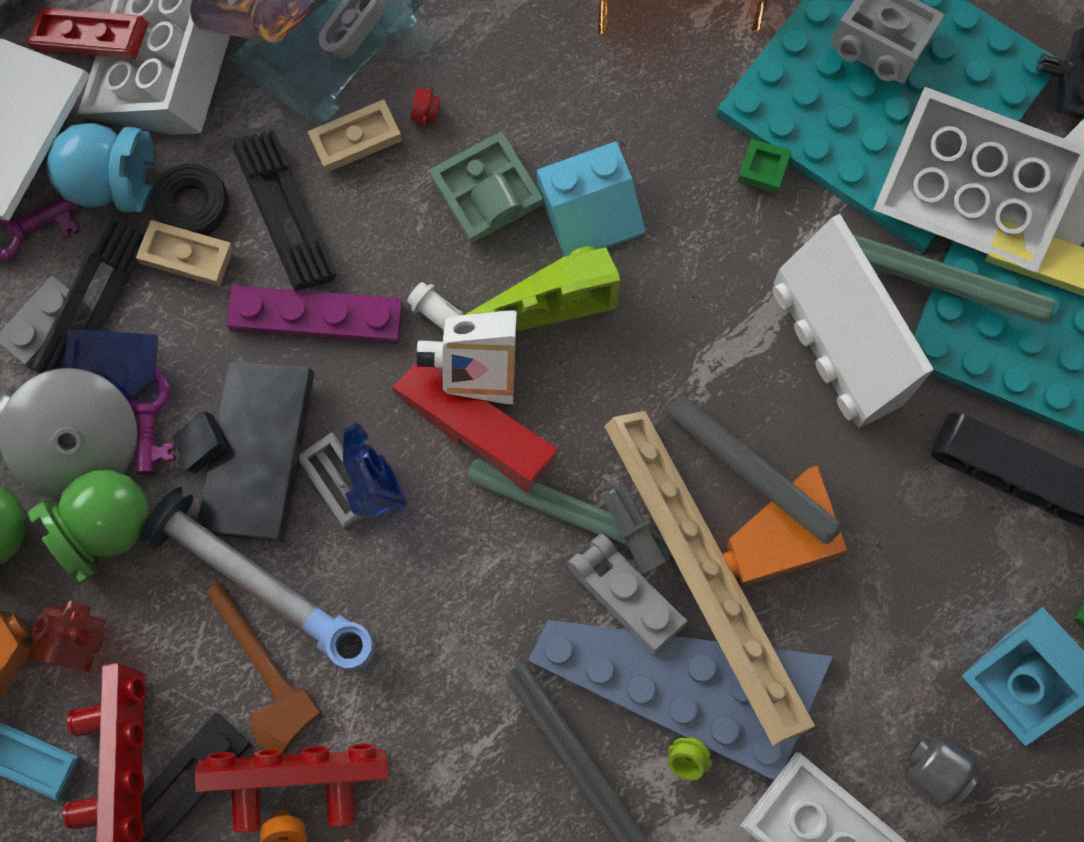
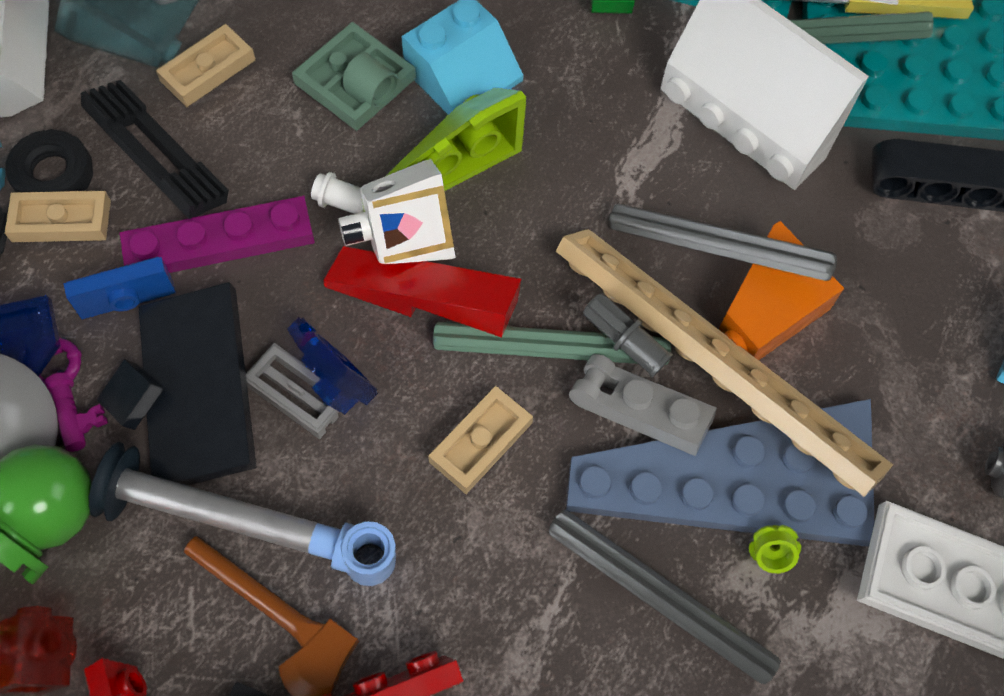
camera: 25 degrees left, 10 degrees down
(218, 341) = (119, 288): none -> blue plate
(425, 106) = (268, 23): red plate -> none
(477, 578) = (480, 439): none -> tan plate

